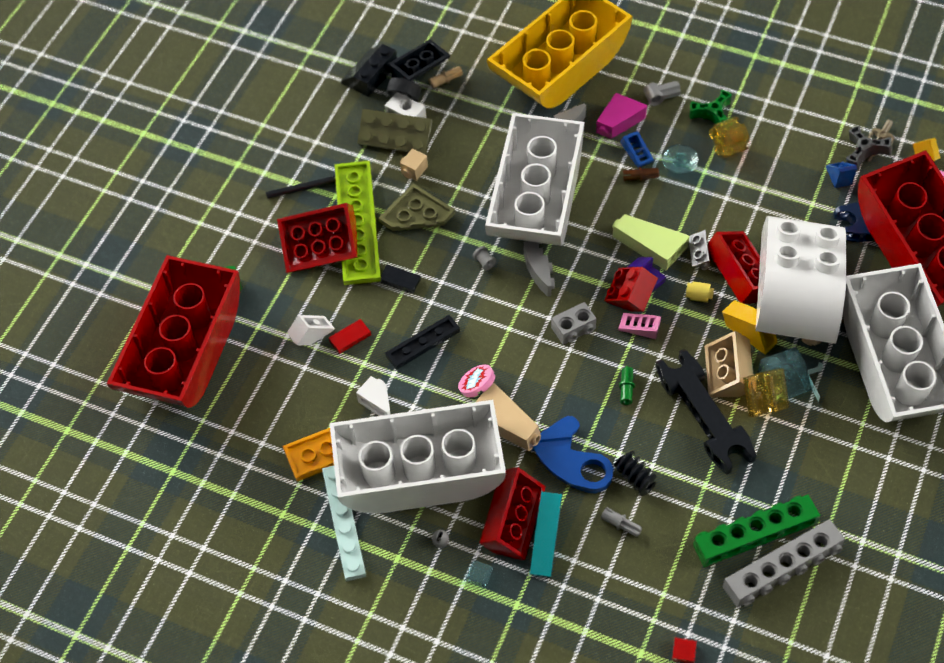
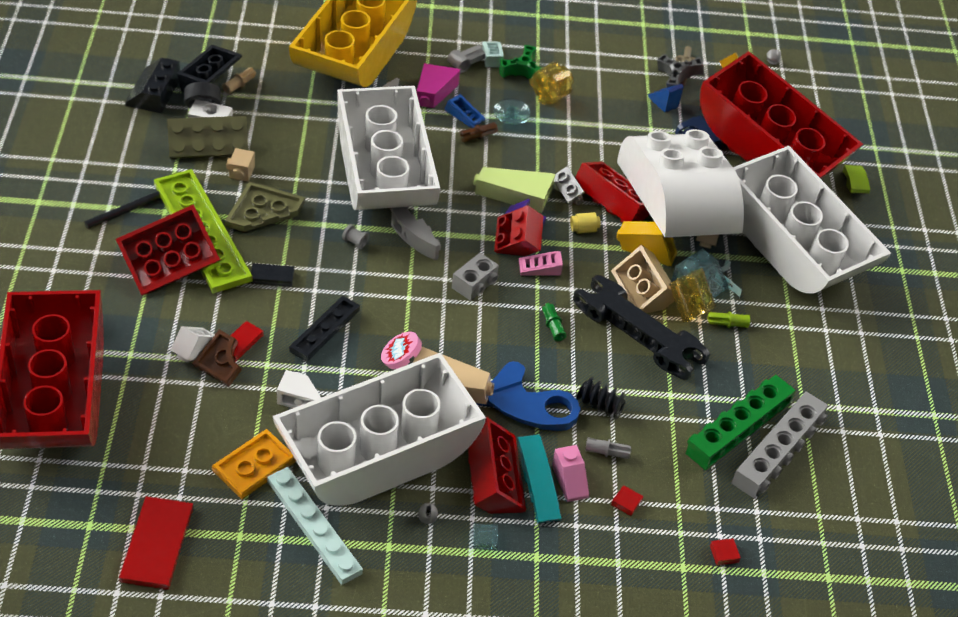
camera: 30 degrees left, 10 degrees down
(216, 501) = (156, 543): none -> red tile
(324, 349) = (218, 358): none -> reddish brown tile
(576, 538) = (571, 473): none -> bright pink slope
(617, 576) = (627, 500): none -> red tile
(685, 99) = (493, 53): none -> light aqua slope
(794, 424) = (729, 319): none -> lime axle

